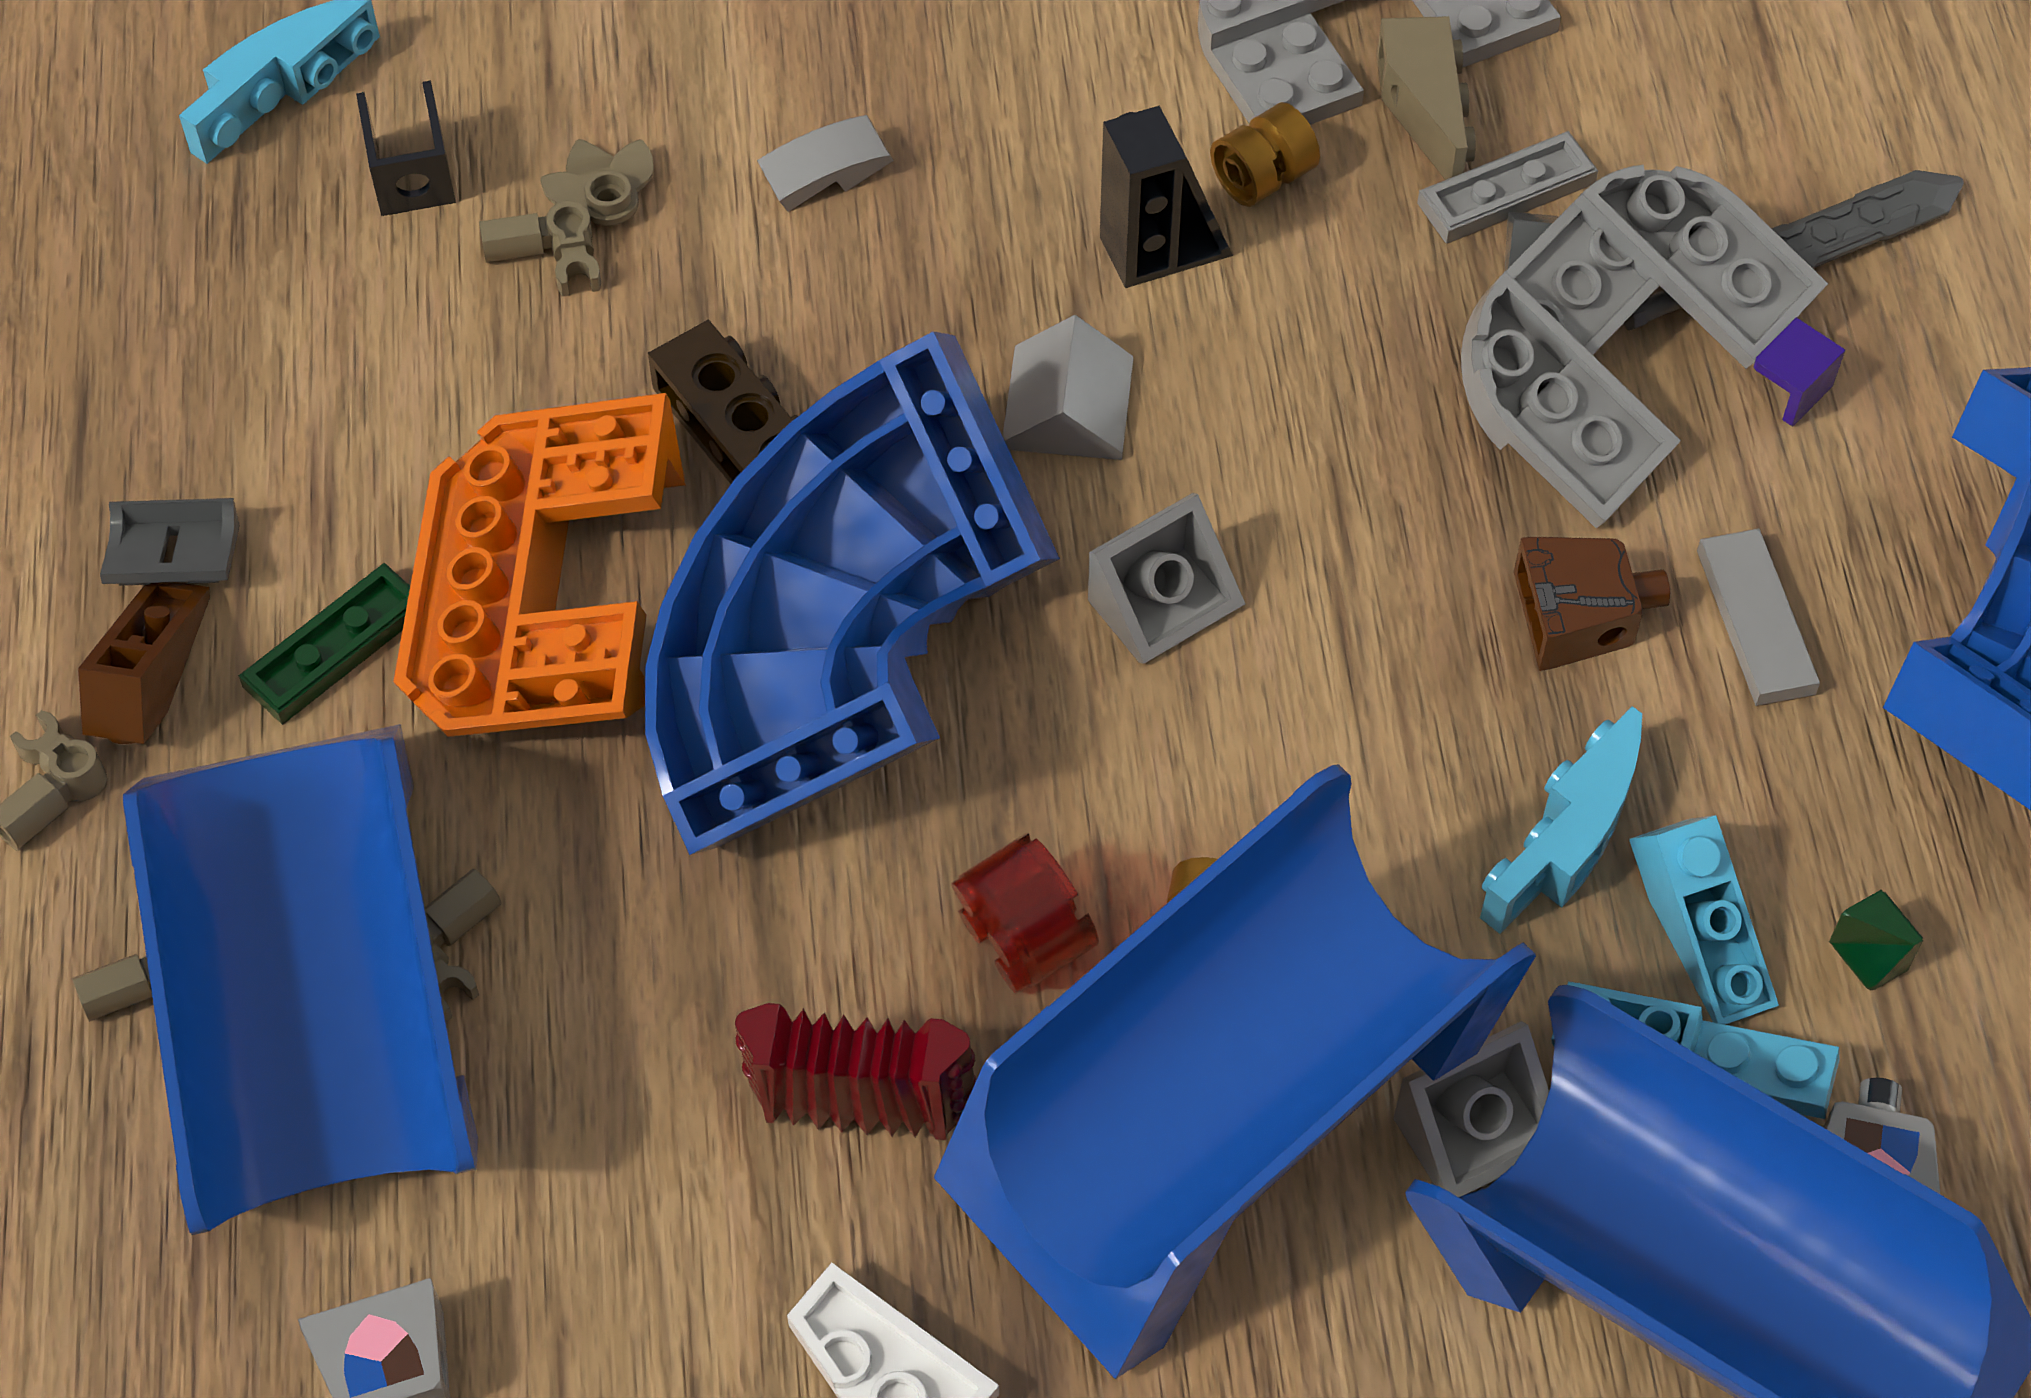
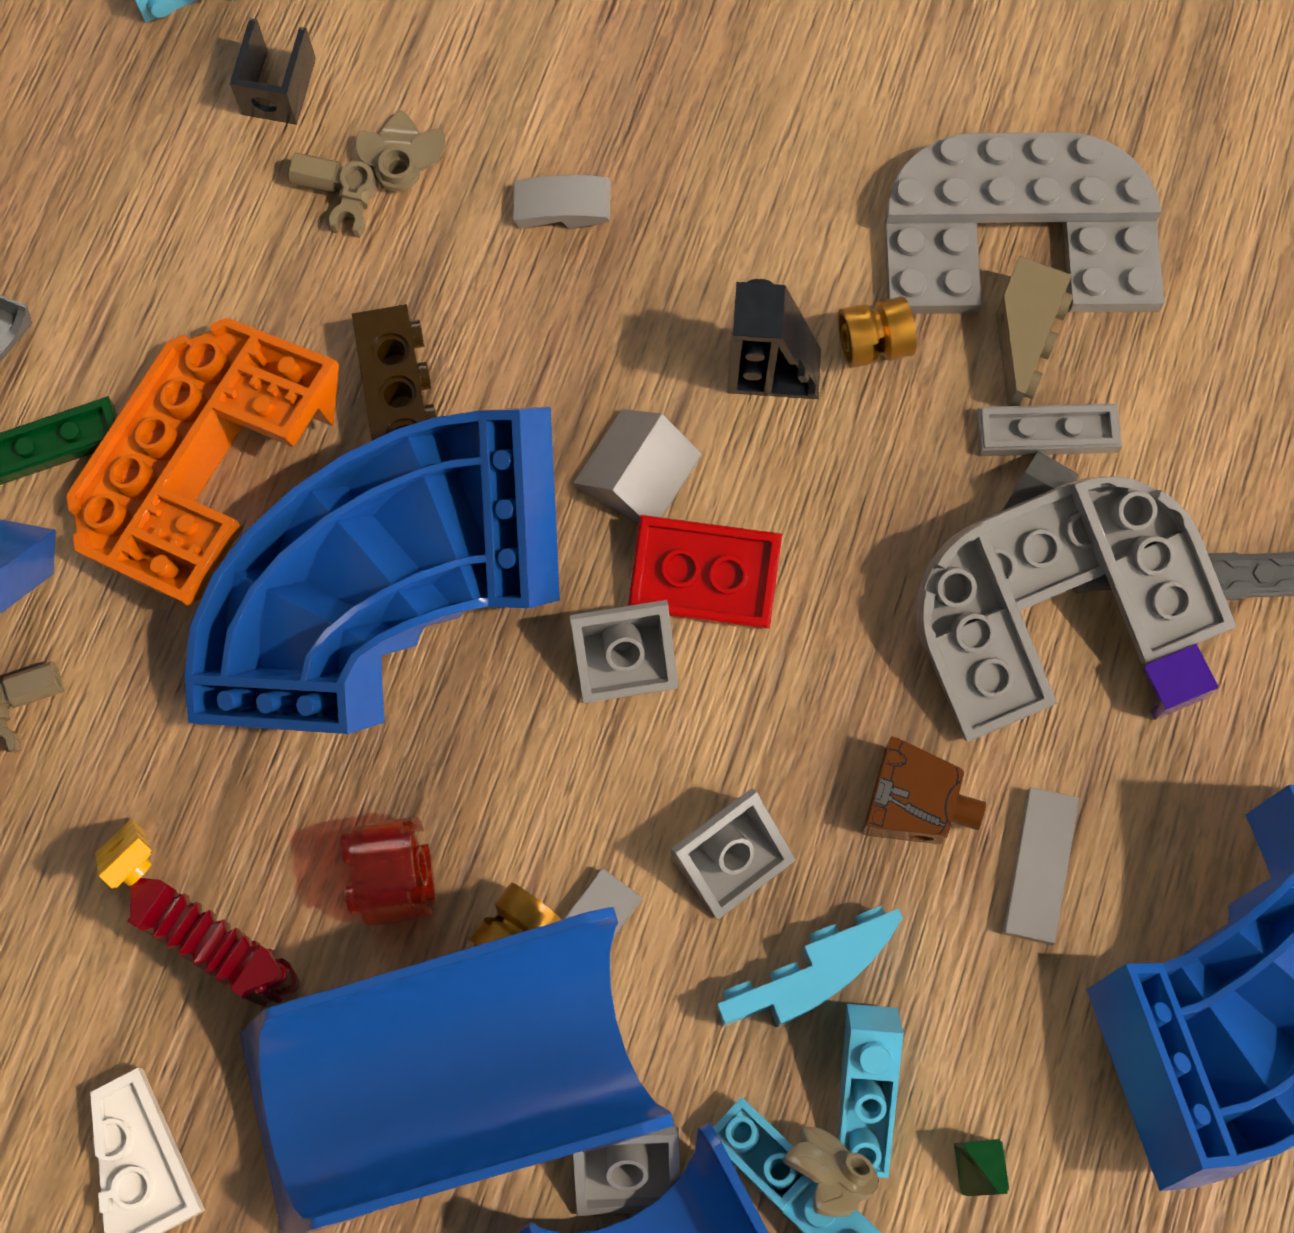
camera: 25 degrees right, 15 degrees up
(699, 1012) = (124, 856): none -> yellow tile
(1229, 453) = (706, 570): none -> red tile
(1409, 738) = (732, 854): none -> light grey slope
(1736, 1005) = (841, 1175): none -> dark tan plate

